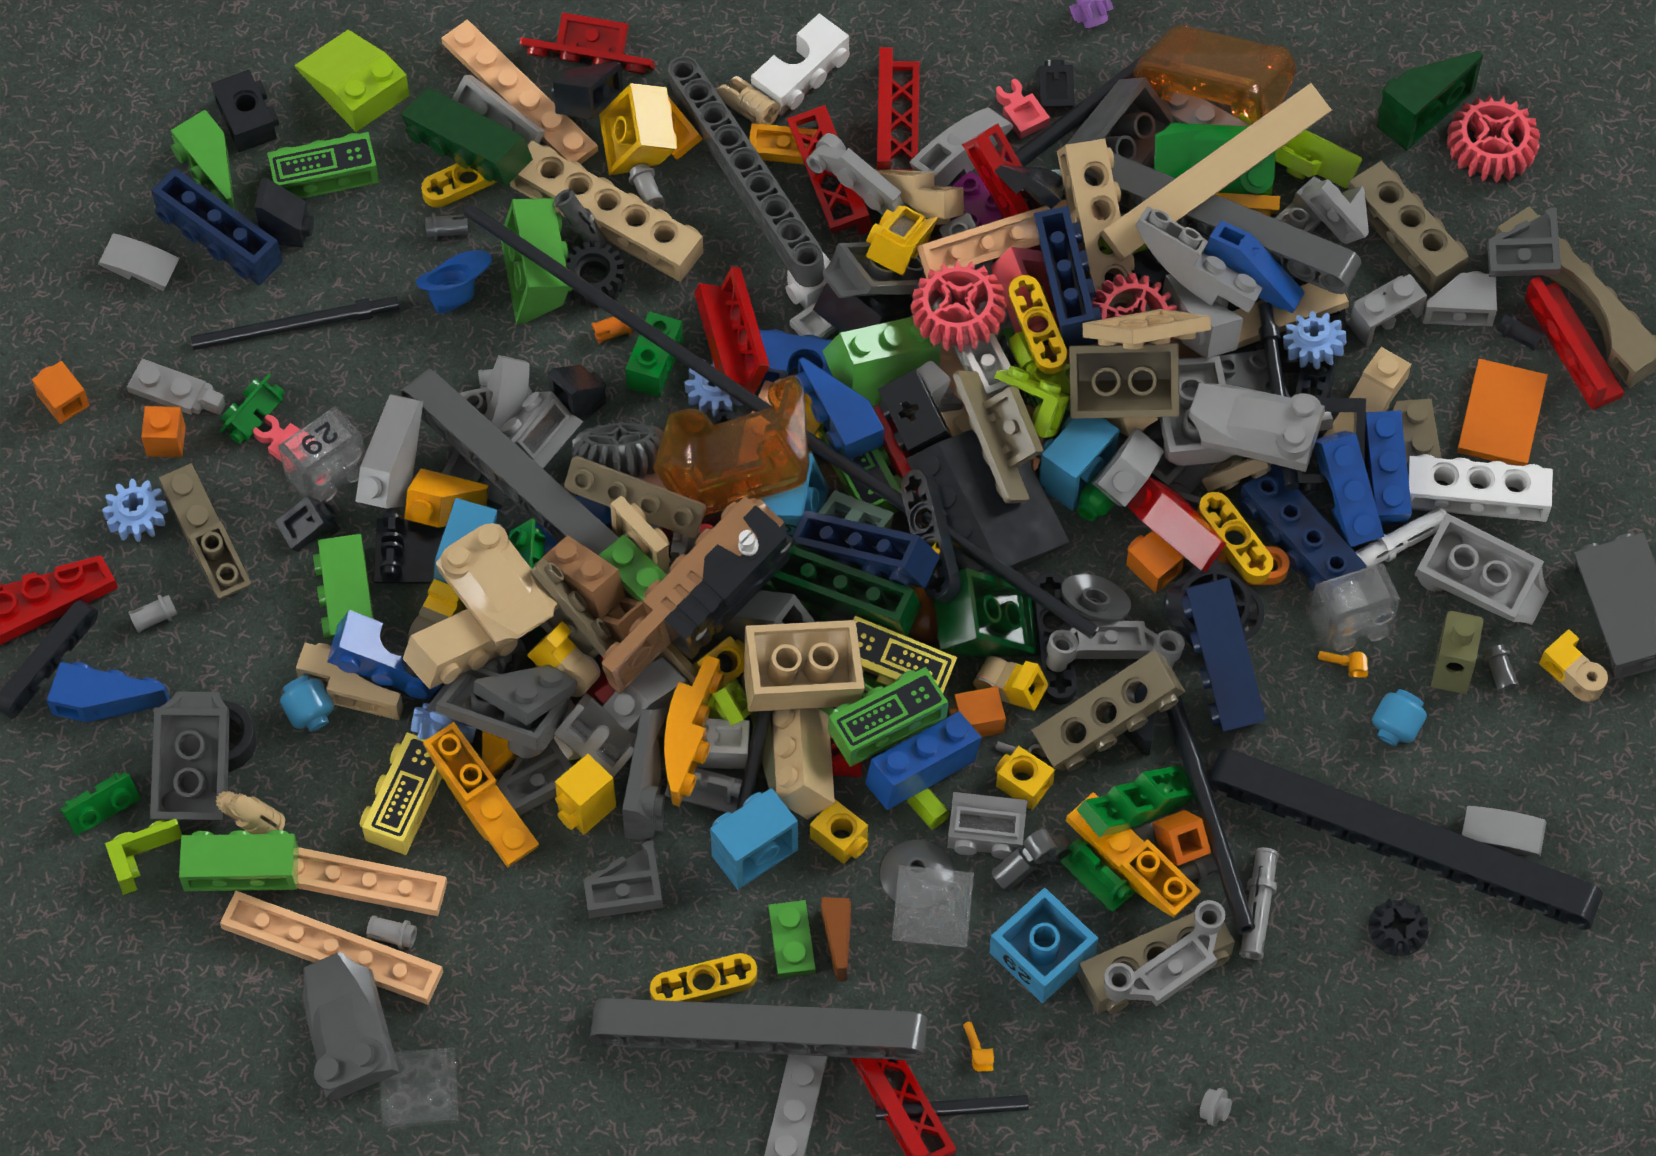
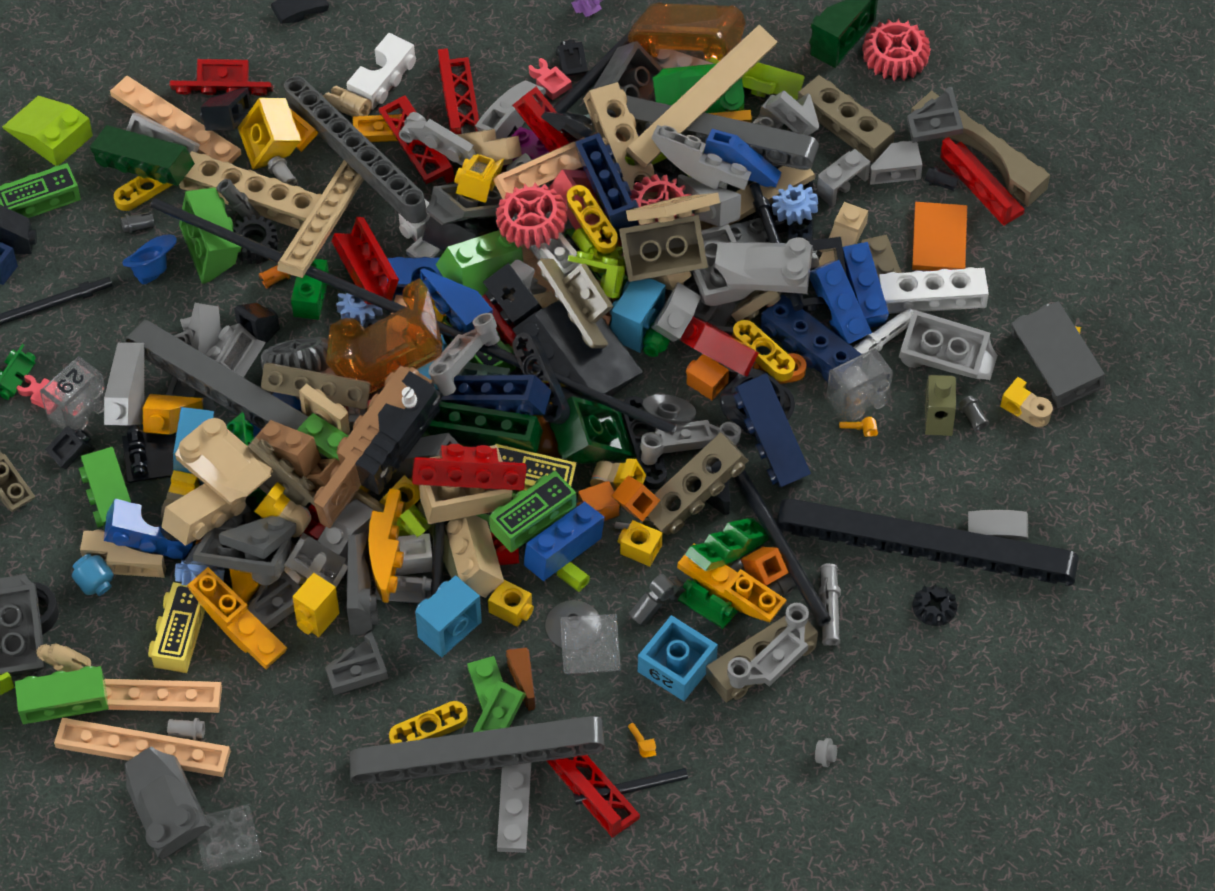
camera: 10 degrees left, 5 degrees down
(681, 268) = (320, 221): none -> tan tile
(799, 976) = (500, 708): none -> bright green plate
(812, 649) = (469, 468): none -> red bracket
(830, 483) = (461, 351): none -> light grey plate
(986, 824) = (618, 580): light grey window -> none
(1026, 718) = (635, 498): none -> orange brick
(1399, 717) = (907, 458): dark azure head -> none

